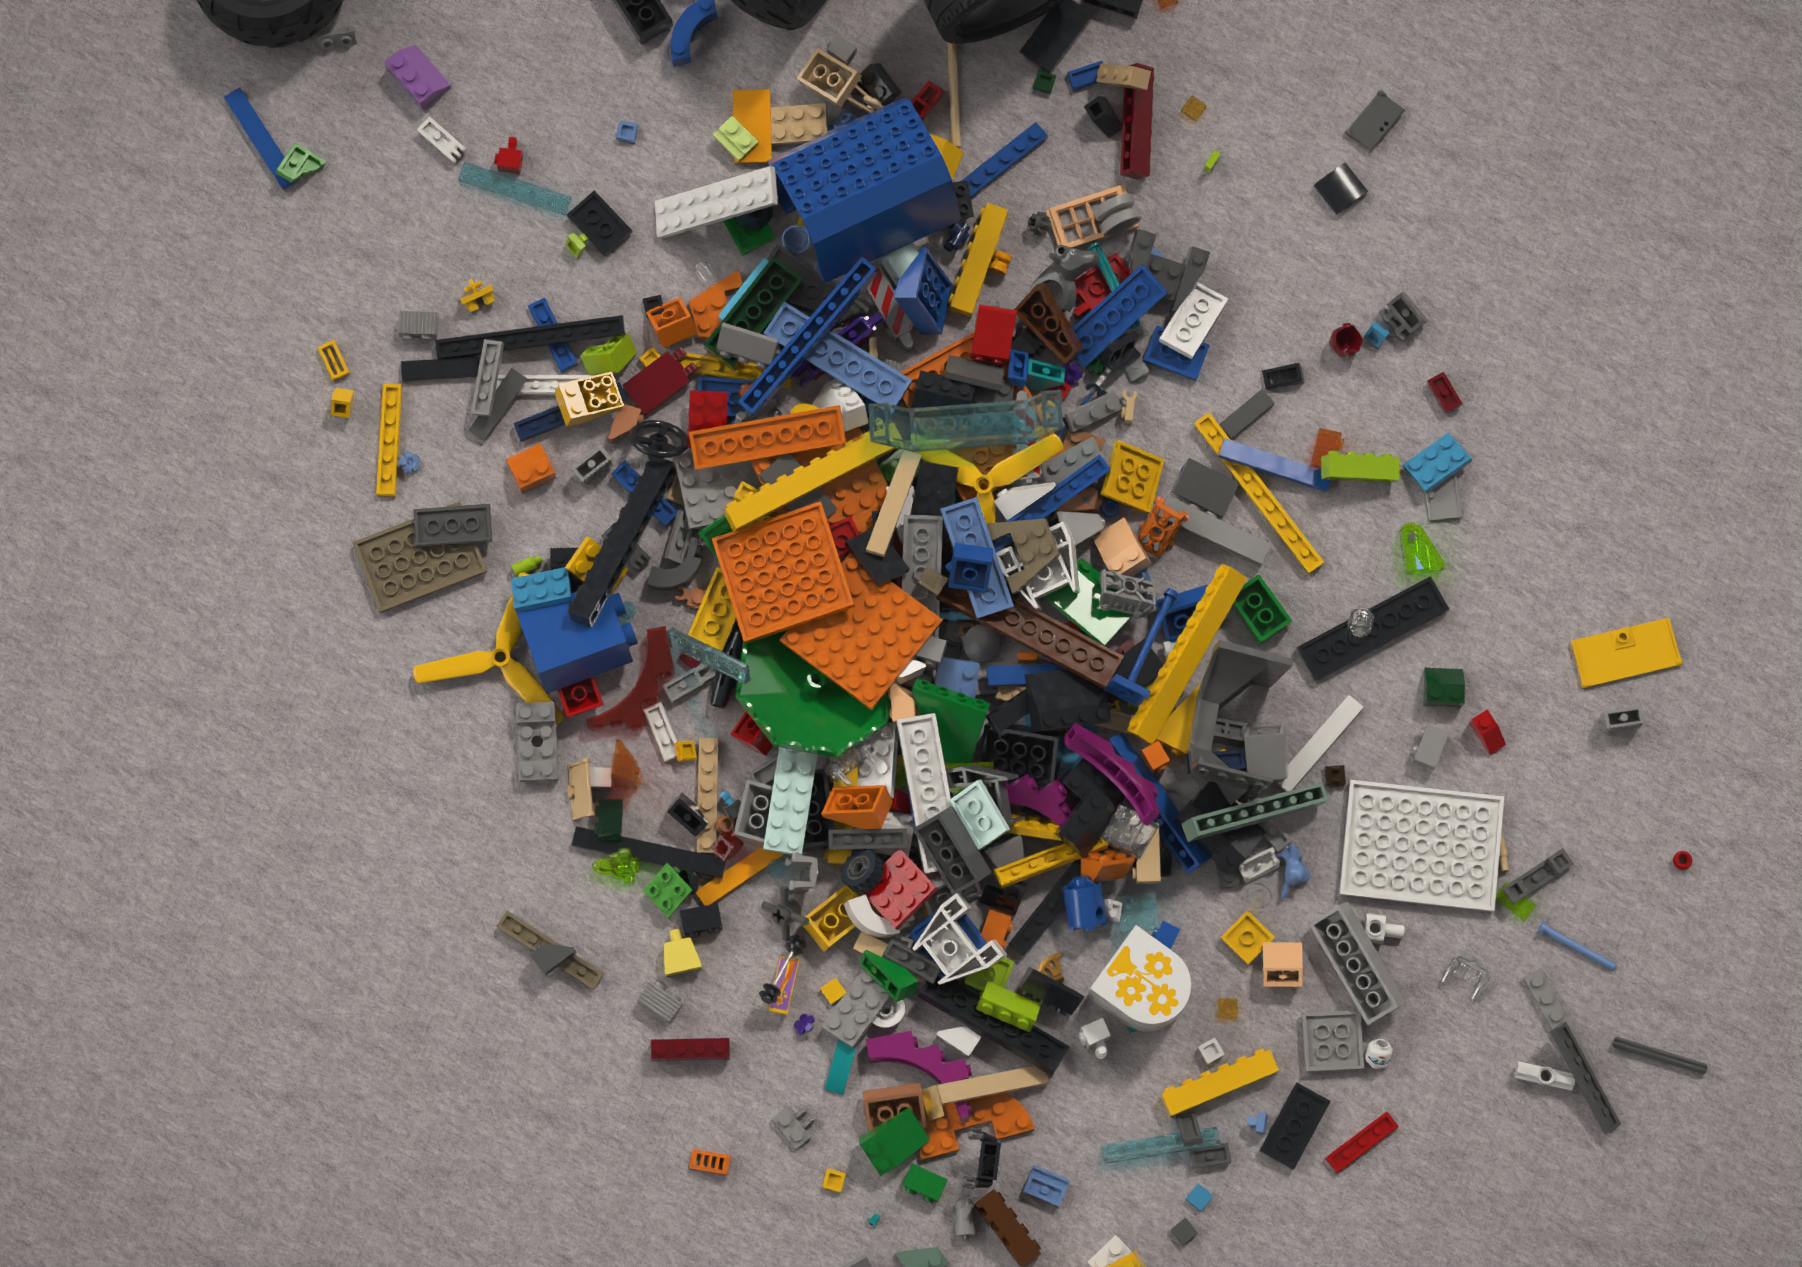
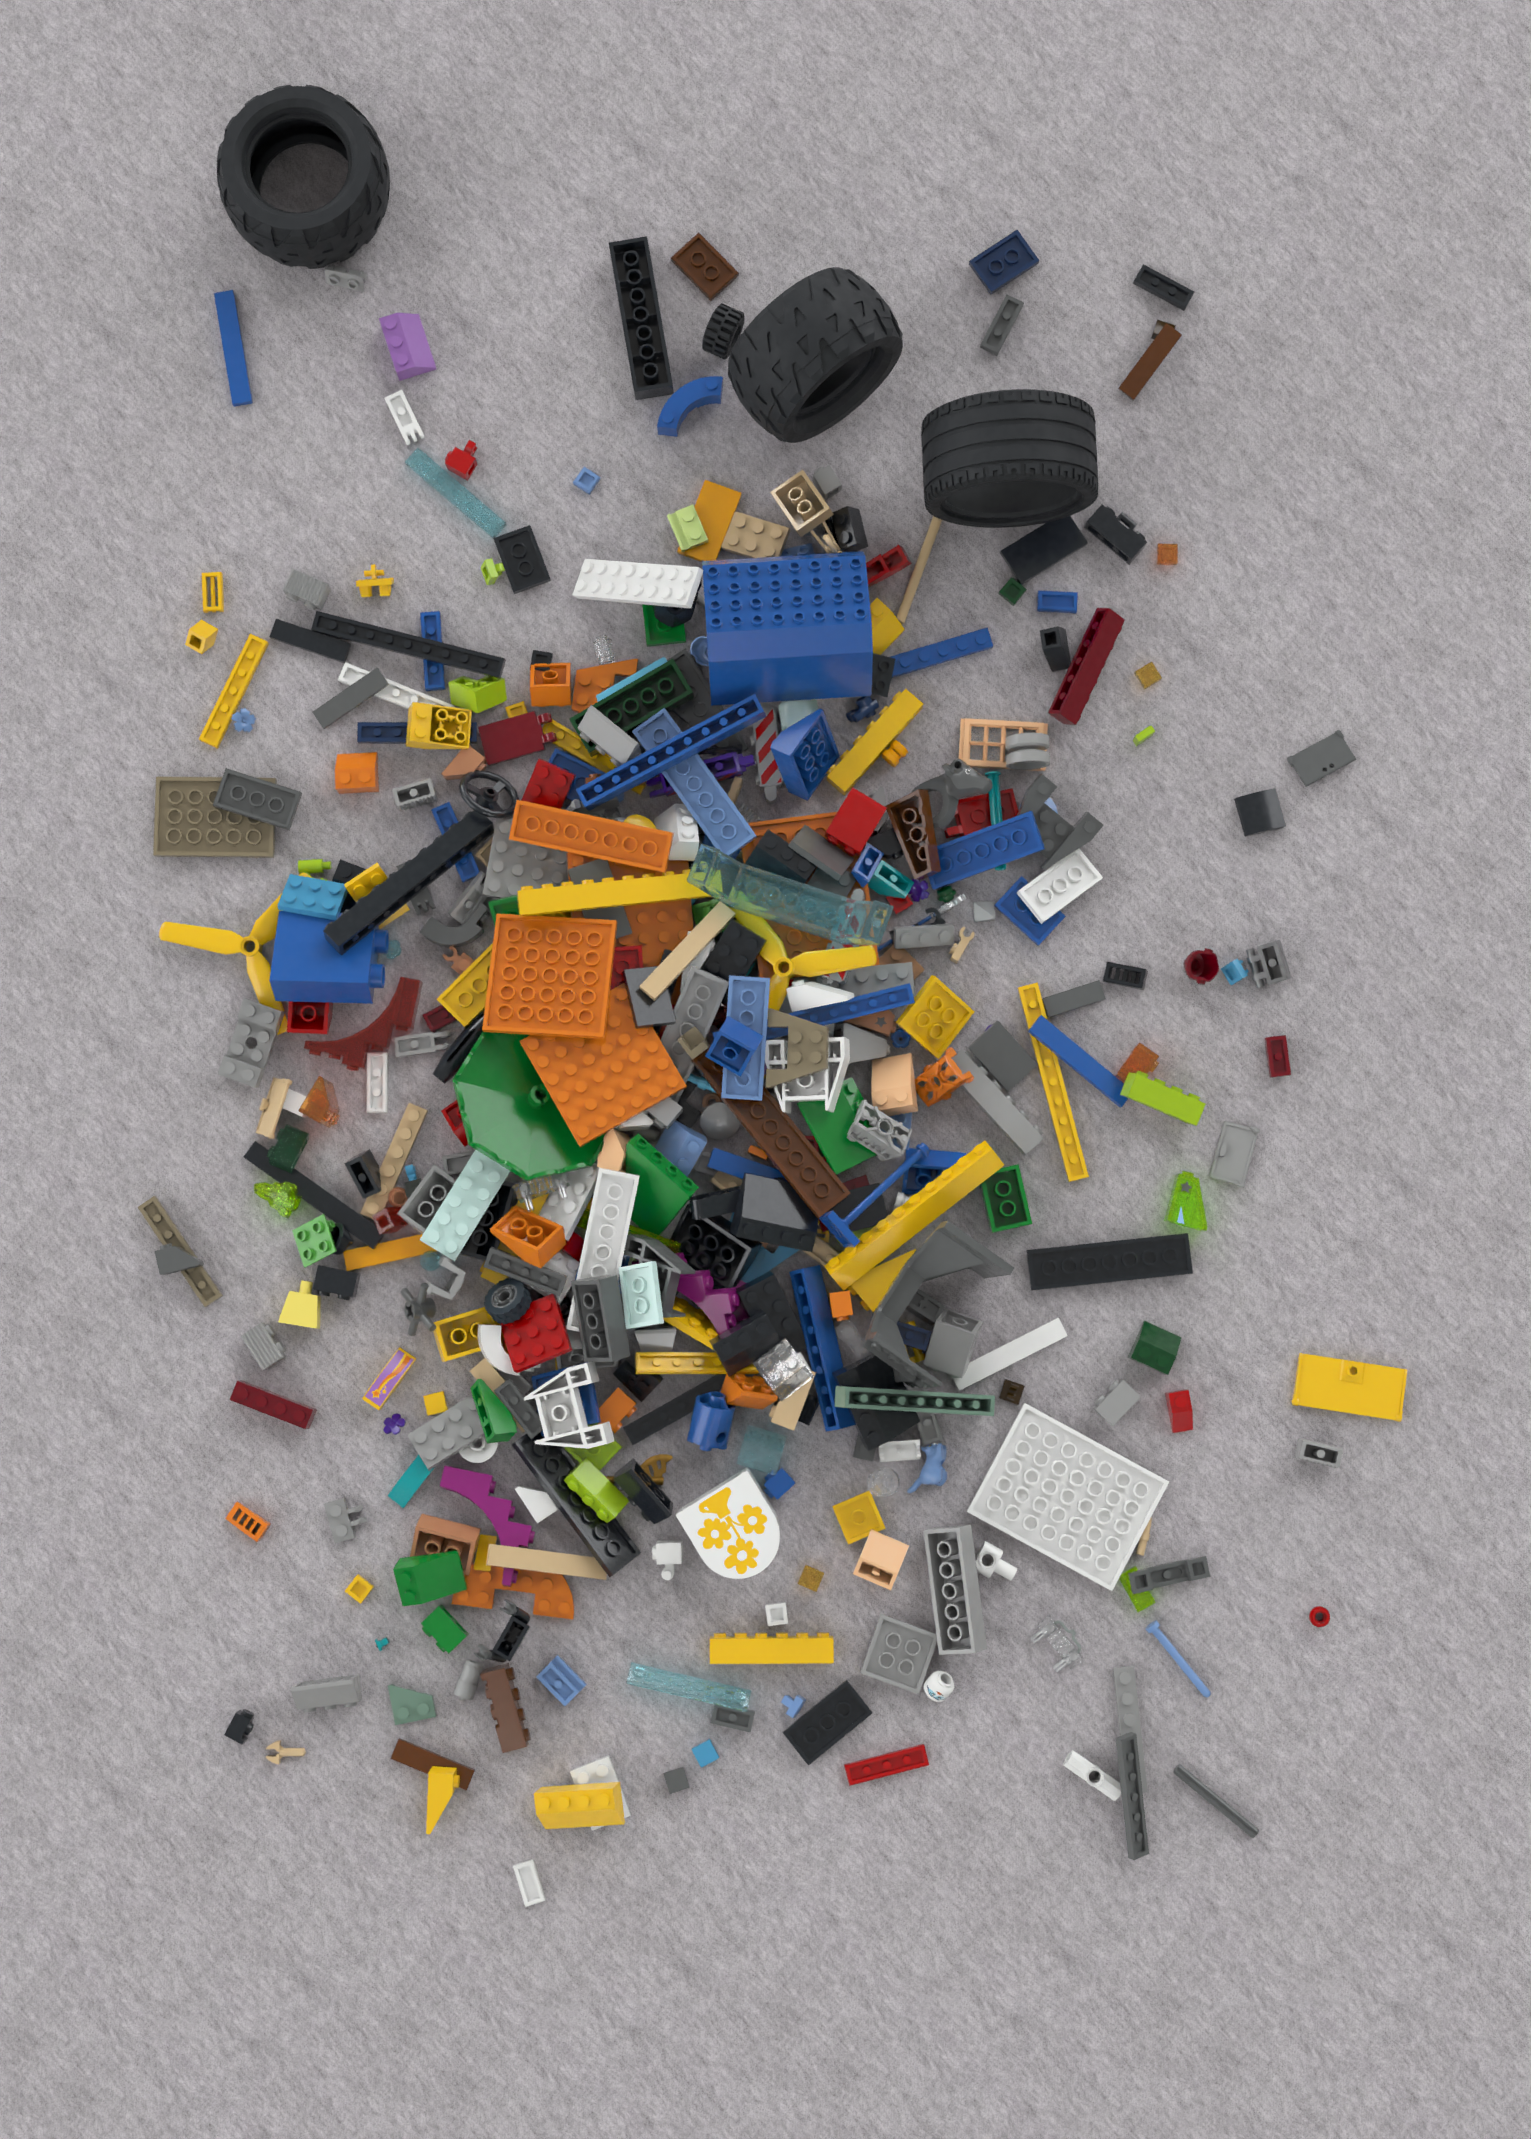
camera: 25 degrees right, 5 degrees up
(299, 163) = (257, 386): bright green wing -> none
(487, 378) = (349, 668): light grey plate -> none
(685, 751) = (390, 1110): yellow tile -> none
(709, 655) = (445, 1028): clear light blue plate -> none
(743, 489) = (550, 877): yellow tile -> none
(770, 990) = (372, 1381): black axle -> none
(1039, 223) = (948, 729): dark grey gear -> none
(1113, 909) = (737, 1437): white tile -> none
(1120, 771) = (799, 1306): magenta arch -> none
(1121, 352) = (975, 889): black bracket -> none
(1123, 76) = (1090, 616): tan brick -> none
(1189, 1129) = (722, 1684): dark grey tile -> none
(1360, 621) = (1099, 1251): clear head -> none
(1437, 463) = (1241, 1123): dark azure plate -> none

